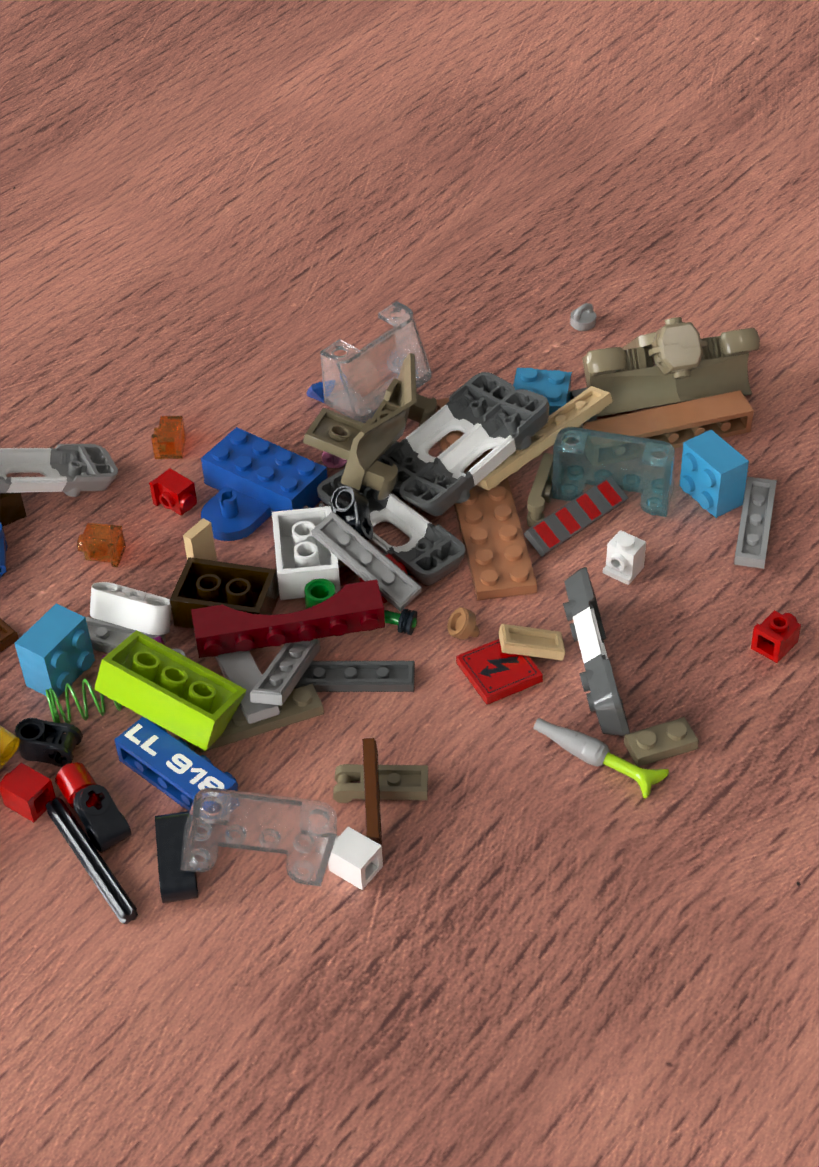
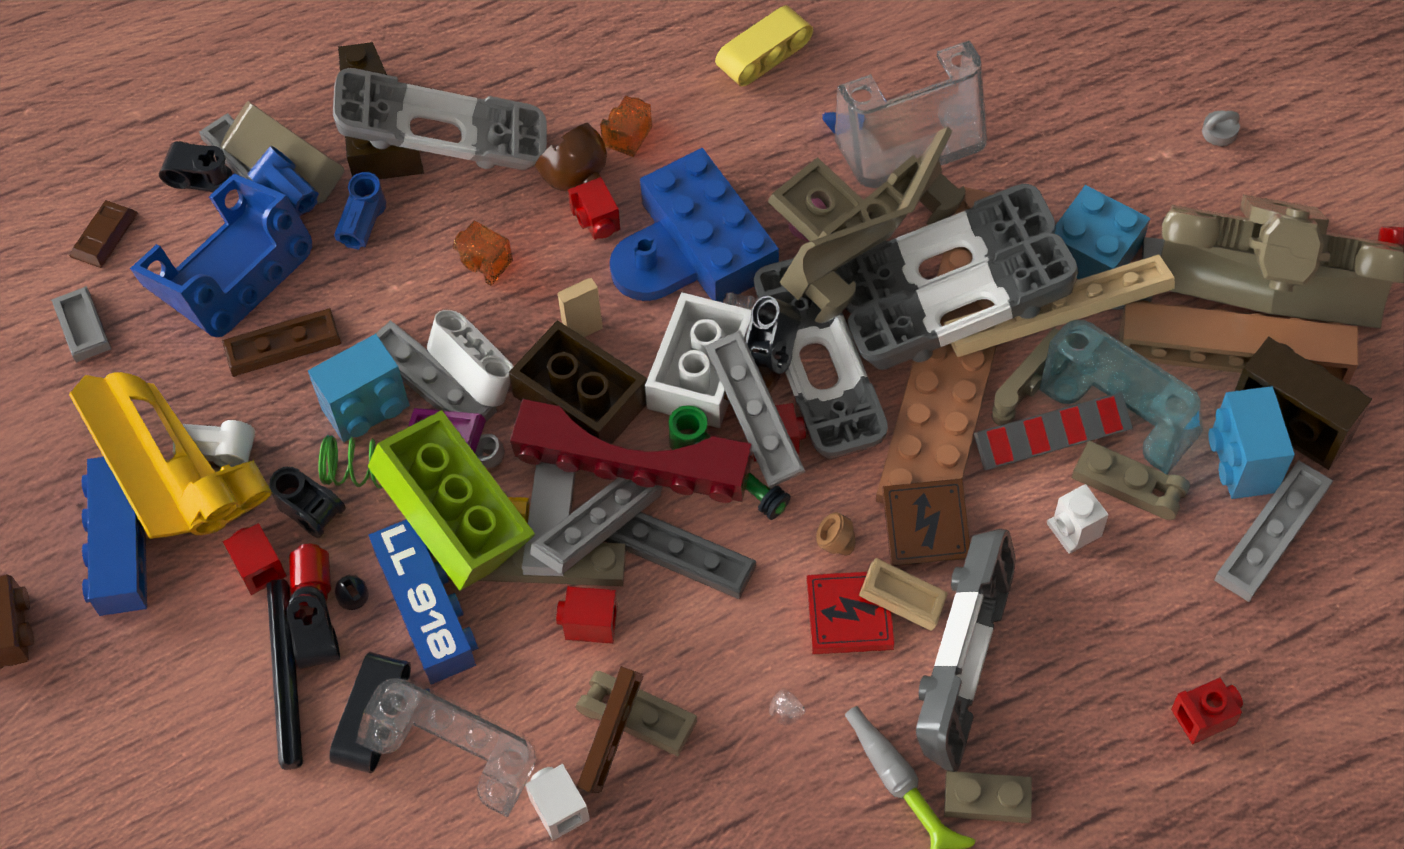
camera: 25 degrees right, 15 degrees up
(117, 794) = (343, 596): none -> black hinge
(141, 466) = (574, 160): none -> reddish brown cylinder
(243, 363) = (764, 45): none -> light yellow beam
(311, 734) = (588, 614): none -> red brick
(489, 738) = (787, 706): none -> clear hinge
(522, 593) = (926, 522): none -> reddish brown tile
(647, 527) = (1130, 481): none -> dark tan plate
(745, 431) = (1314, 404): none -> dark brown brick

